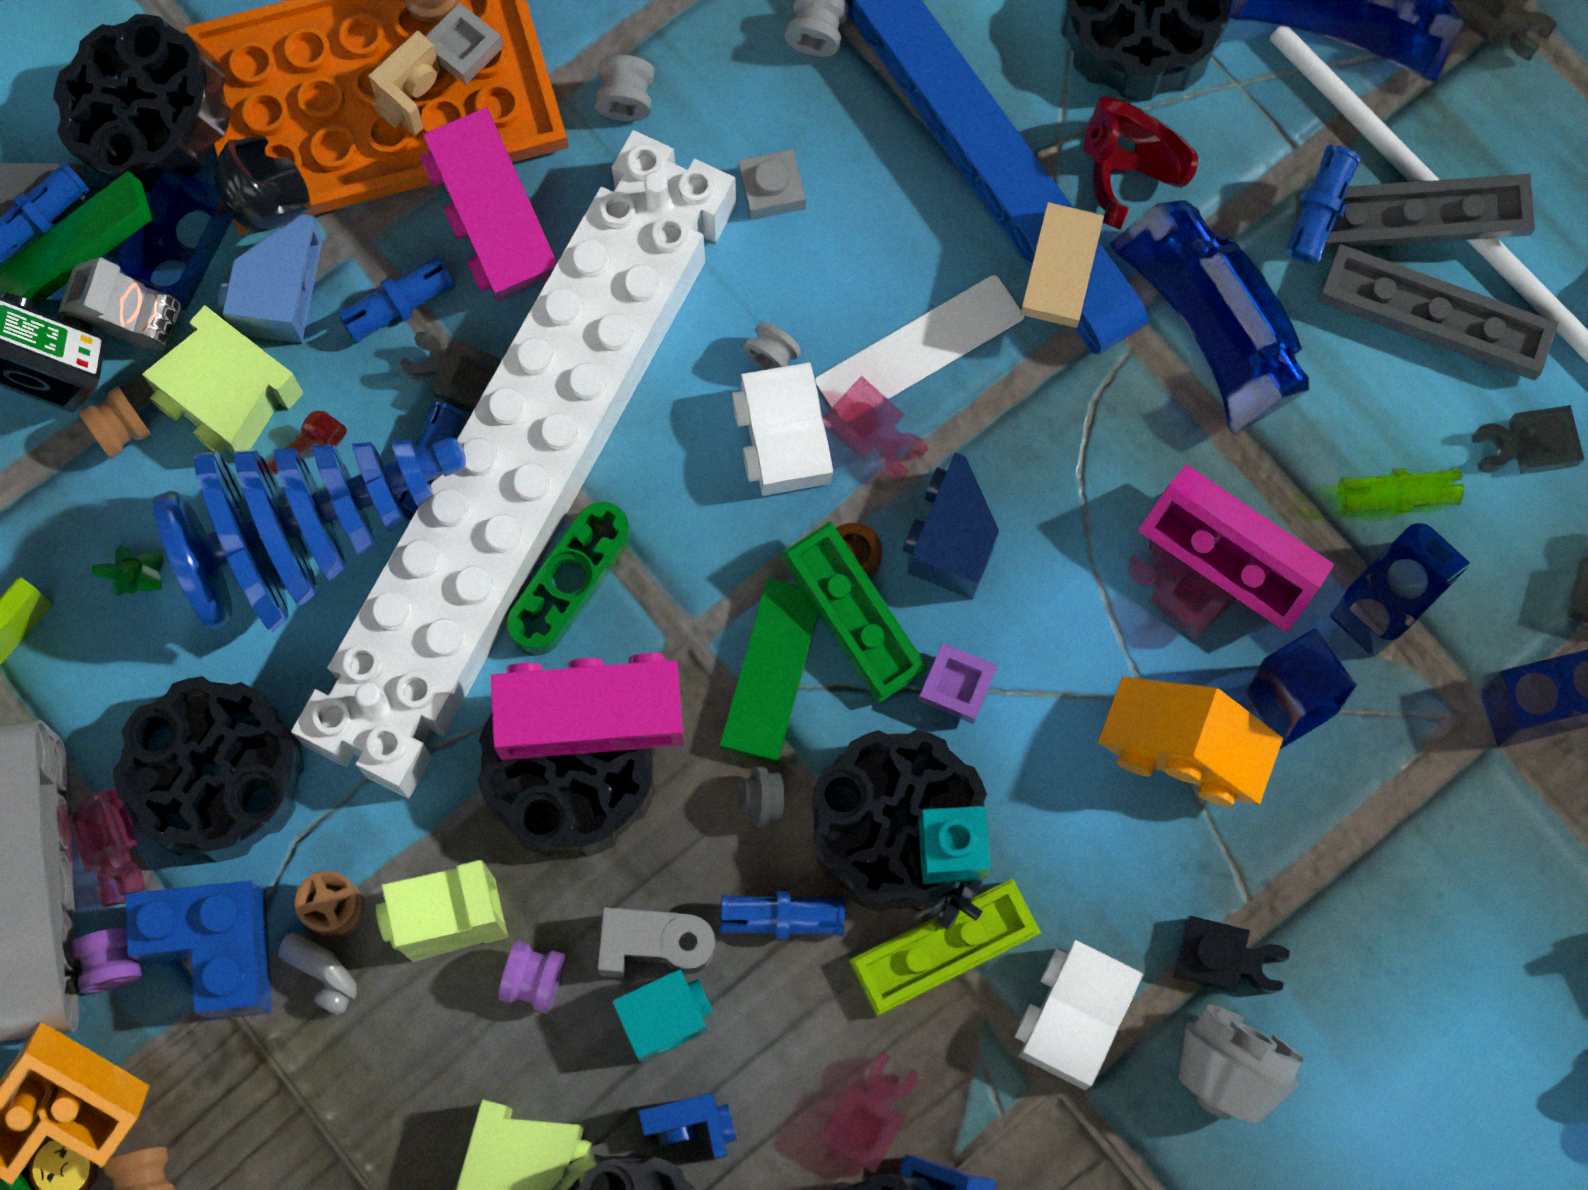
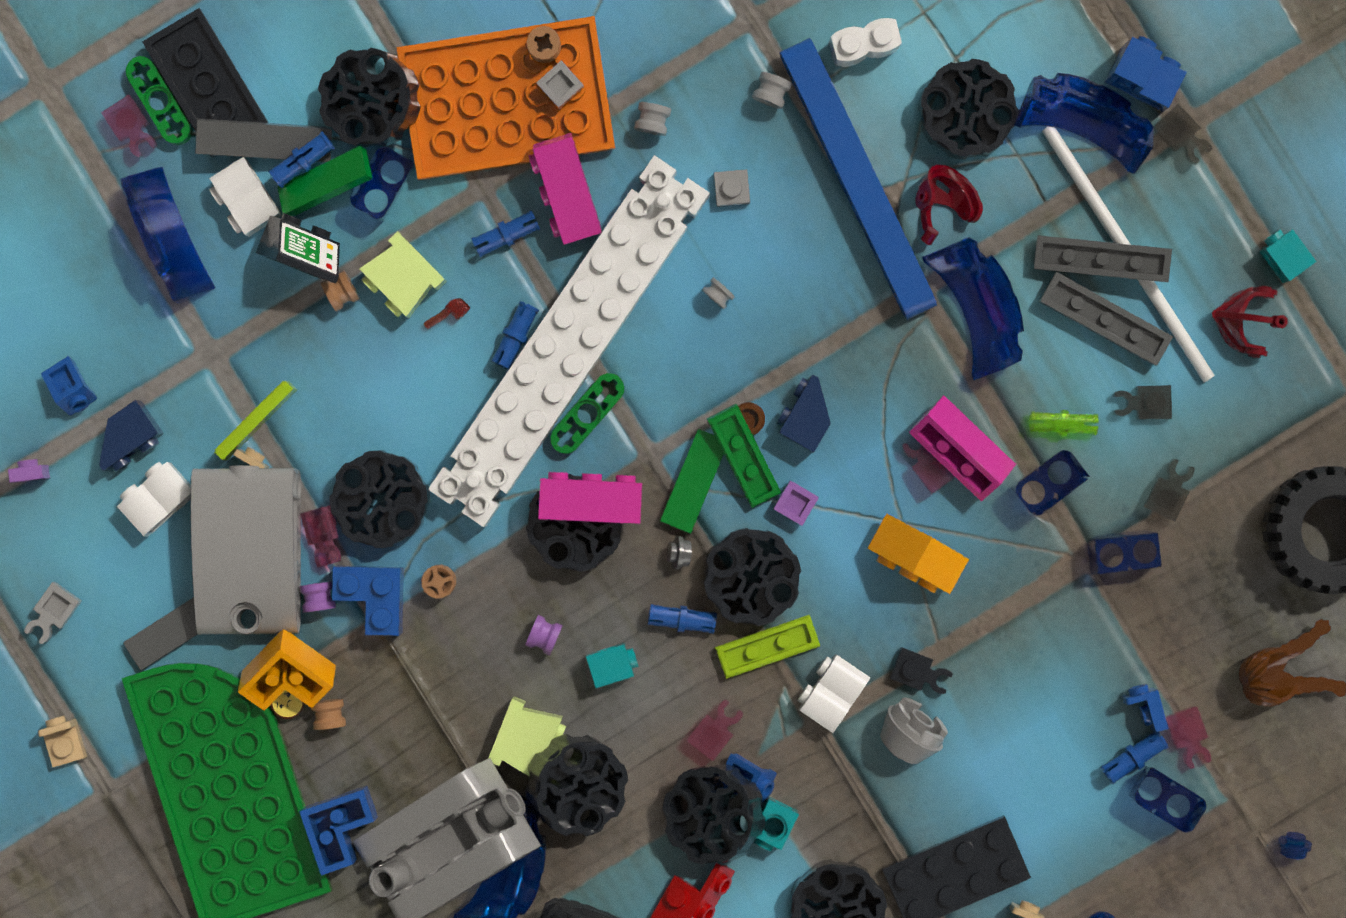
camera: 10 degrees right, 15 degrees up
(119, 305) = (348, 222): light grey leg -> none
(132, 571) = (344, 379): green plant -> none
(259, 188) = (436, 164): black hair -> none
(263, 532) = (421, 375): blue plant -> none
(274, 283) = (436, 218): medium blue slope -> none
(323, 966) = (431, 613): light grey arm -> none
(402, 76) = (527, 102): tan bracket -> none
(442, 911) = (500, 598): yellowish green hips -> none
(458, 375) = (540, 288): clear smoke plate -> none
(654, 937) = (613, 622): light grey leg -> none
(677, 1122) = (613, 720): blue bracket -> none
(784, 429) = (719, 343): white brick -> none
(867, 421) = (767, 345): clear pink plate -> none
(927, 342) = (804, 299): white sticker -> none
(954, 845) = (778, 601): teal brick -> none
(959, 900) = (779, 625): black plant -> none
(1062, 265) = (891, 270): tan tile -> none
(1300, 687) = (982, 534): clear blue piece -> none
(1322, 204) = (1048, 250): blue pin -> none

